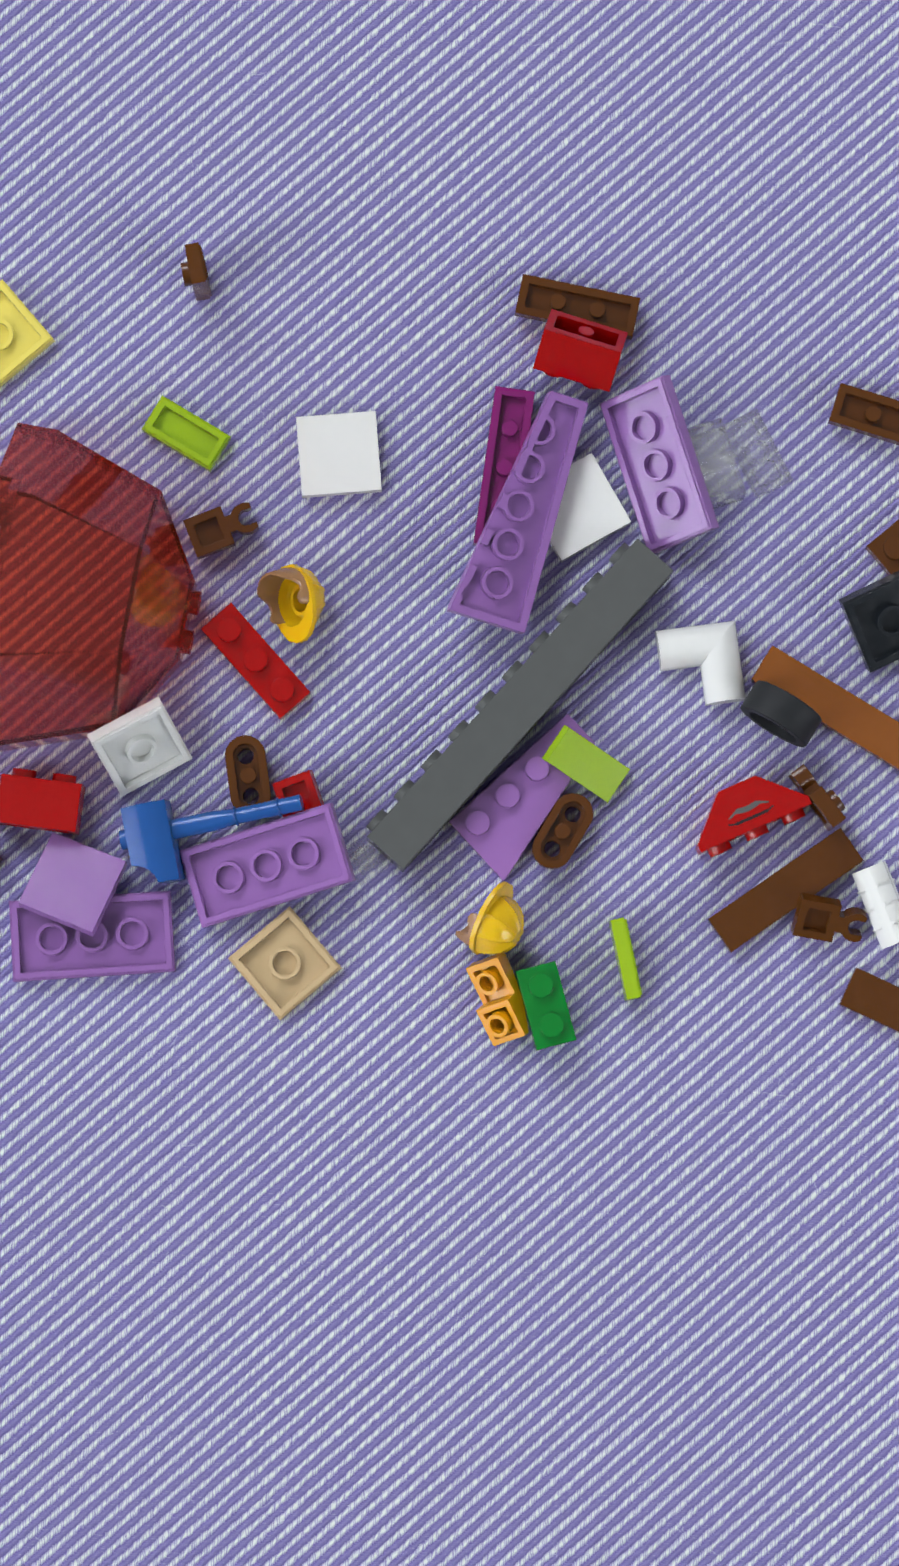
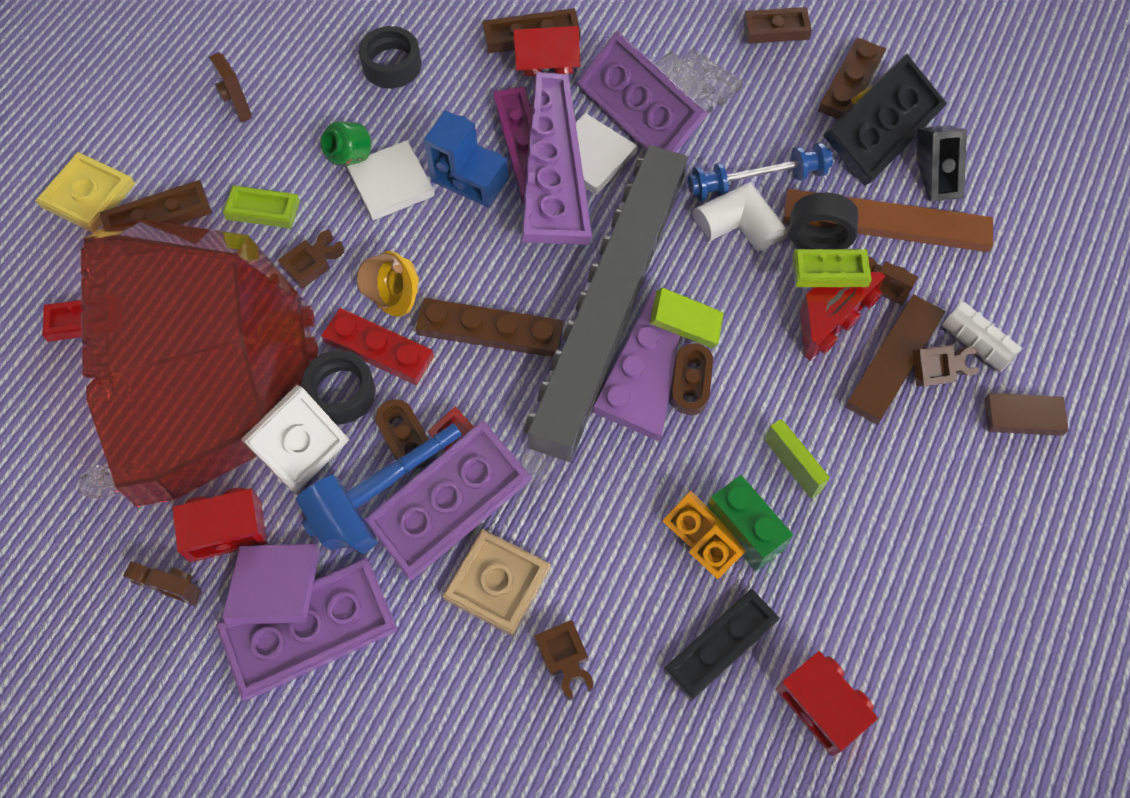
camera: 20 degrees left, 20 degrees down
(69, 401) = (169, 206): none -> reddish brown plate
(201, 666) = (334, 362): none -> black tyre
(304, 396) = (346, 143): none -> green head
(319, 1055) = (563, 653): none -> reddish brown plate
(380, 685) = (489, 327): none -> reddish brown plate
(387, 253) = (386, 39): none -> black tyre
(426, 479) = (460, 163): none -> blue brick
(470, 1106) = (721, 644): none -> black tile
(496, 925) = (673, 469): yellow piece -> none
(537, 1197) = (827, 703): none -> red brick
(753, 777) = (831, 268): none -> lime plate
(807, 620) = (801, 163): none -> blue axle

